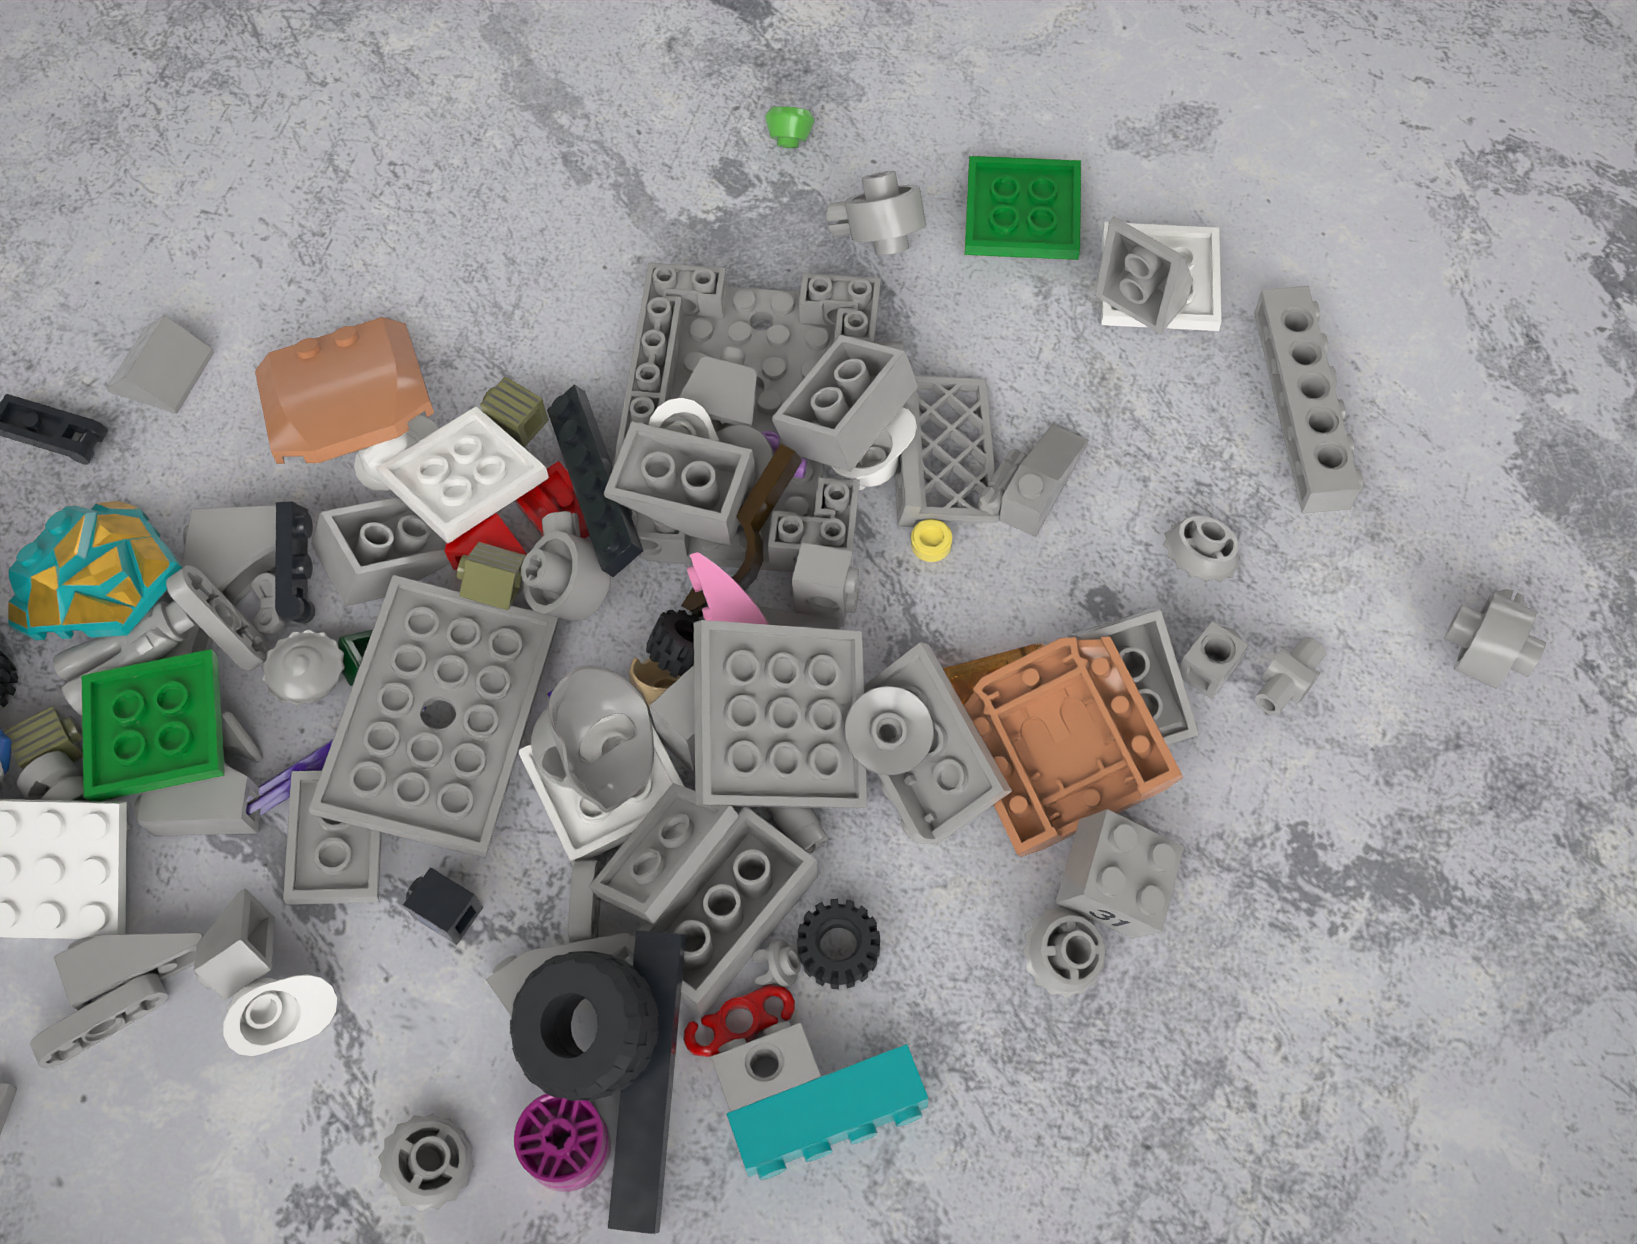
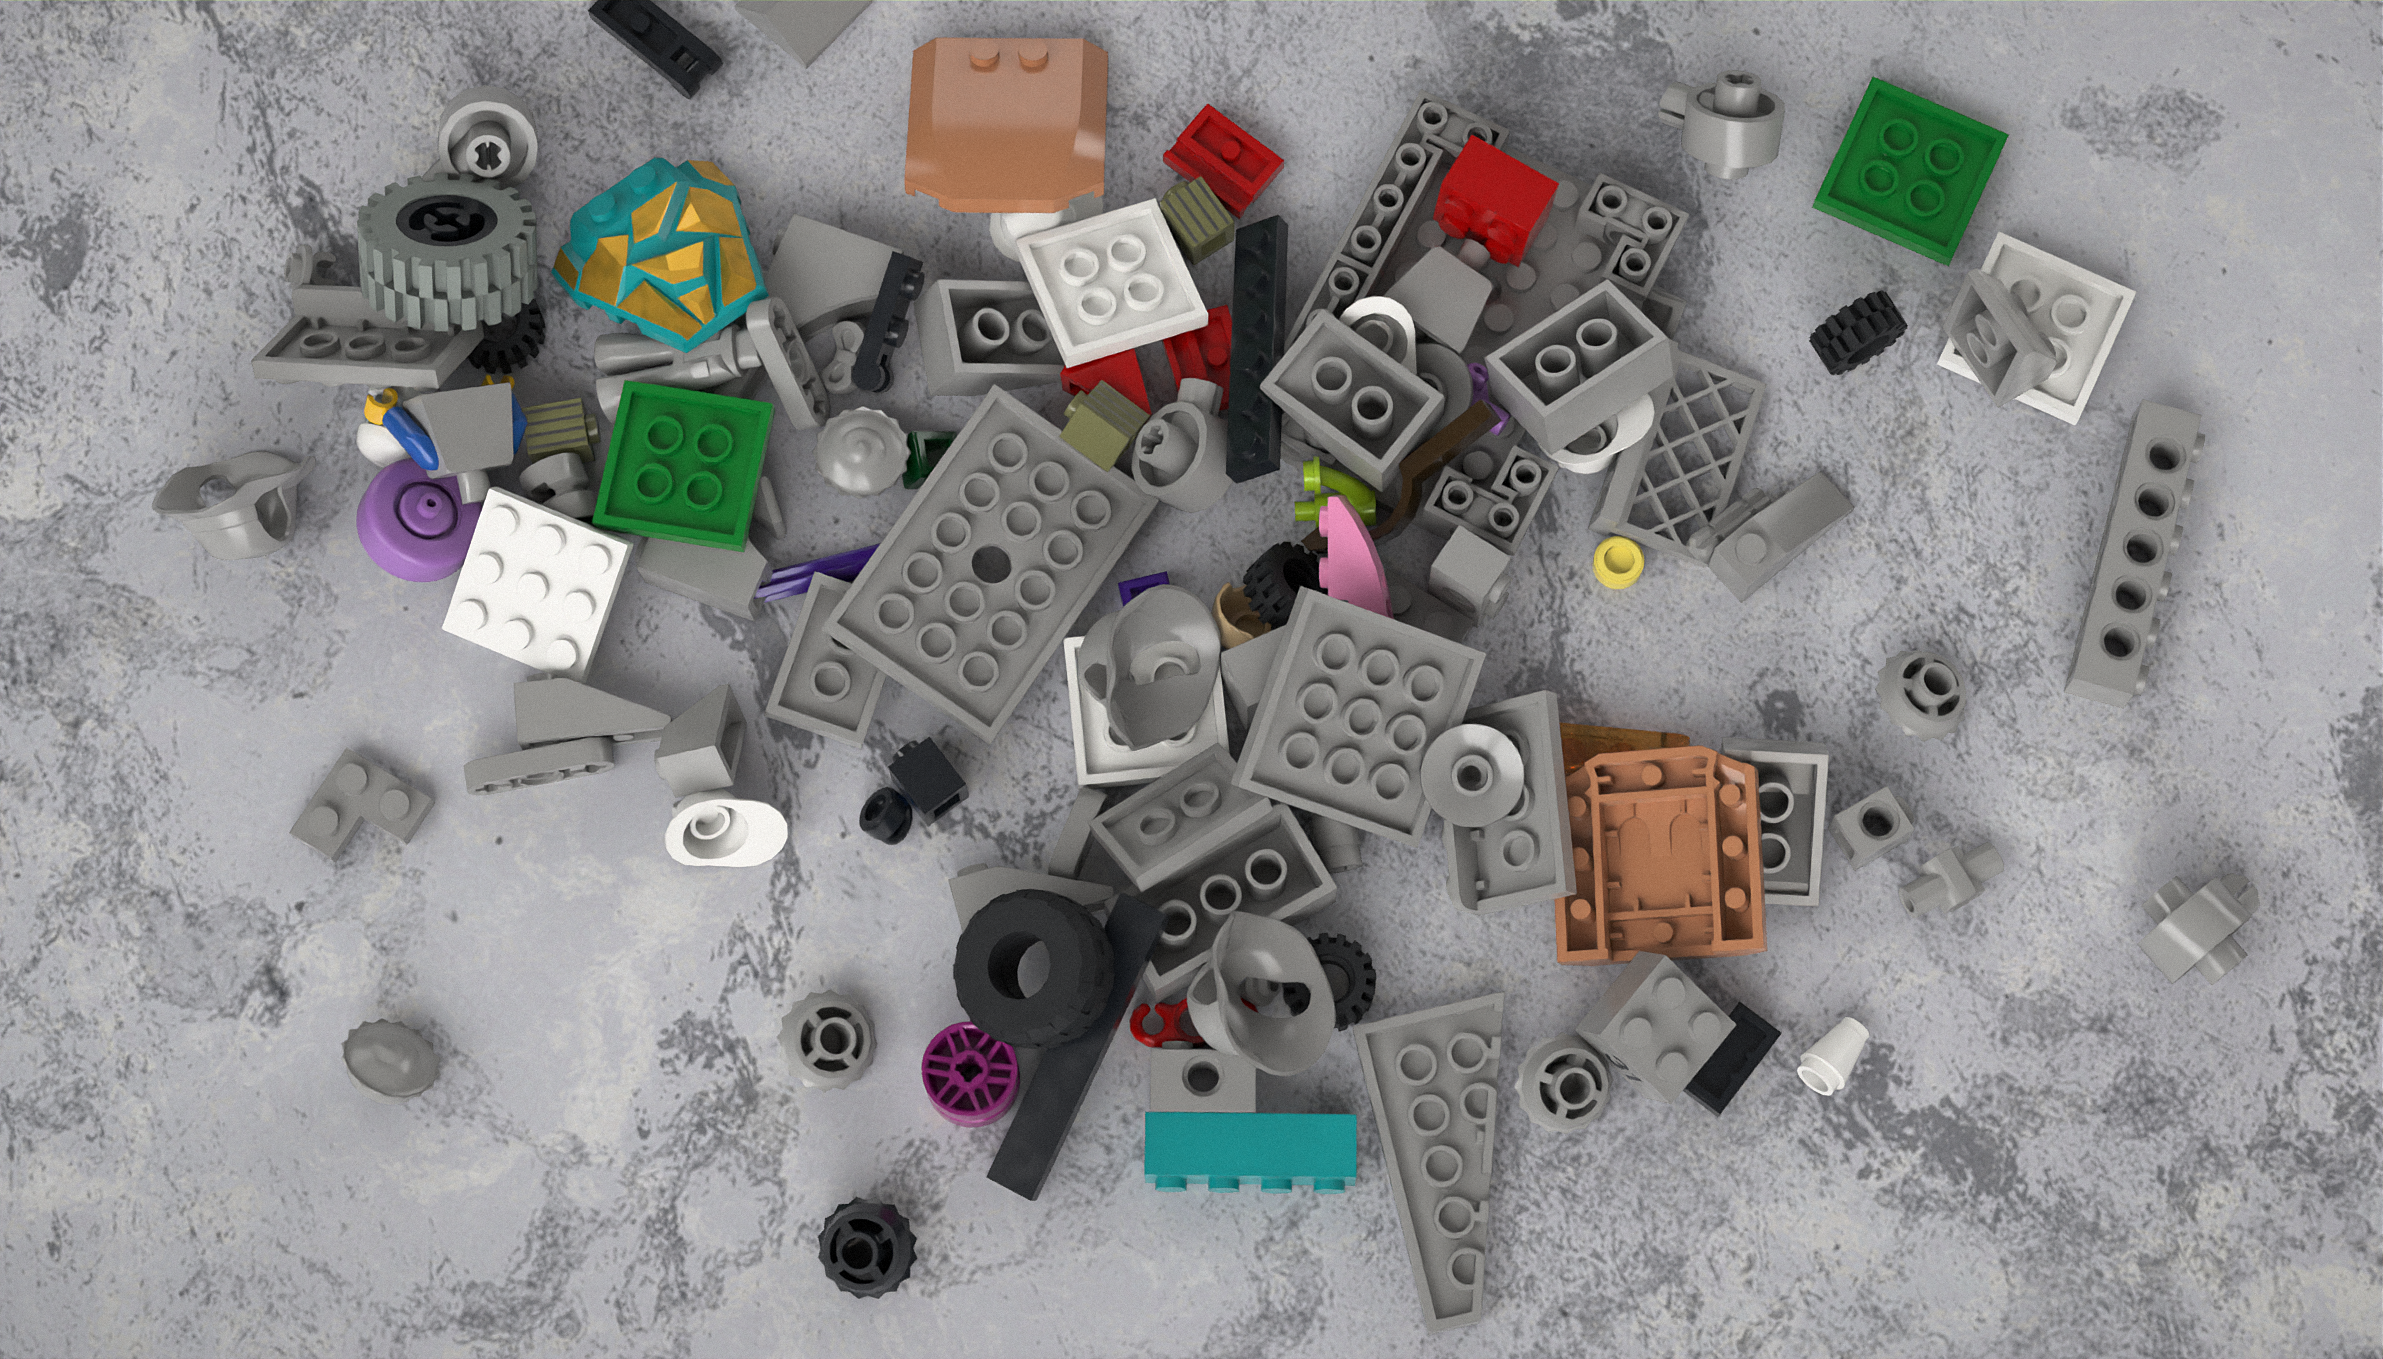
camera: 20 degrees right, 10 degrees up
(414, 947) = (886, 816): none -> black tile
(521, 360) = (1226, 158): none -> red plate
(673, 555) = (1356, 492): none -> lime plant
(734, 310) = (1494, 201): none -> red brick
(780, 934) = (1273, 952): none -> light grey piece
(974, 1027) = (1435, 1118): none -> light grey wing
(1038, 317) = (1858, 332): none -> black tyre
(1192, 880) = (1733, 1060): none -> black plate
(1267, 846) = (1833, 1057): none -> white cone

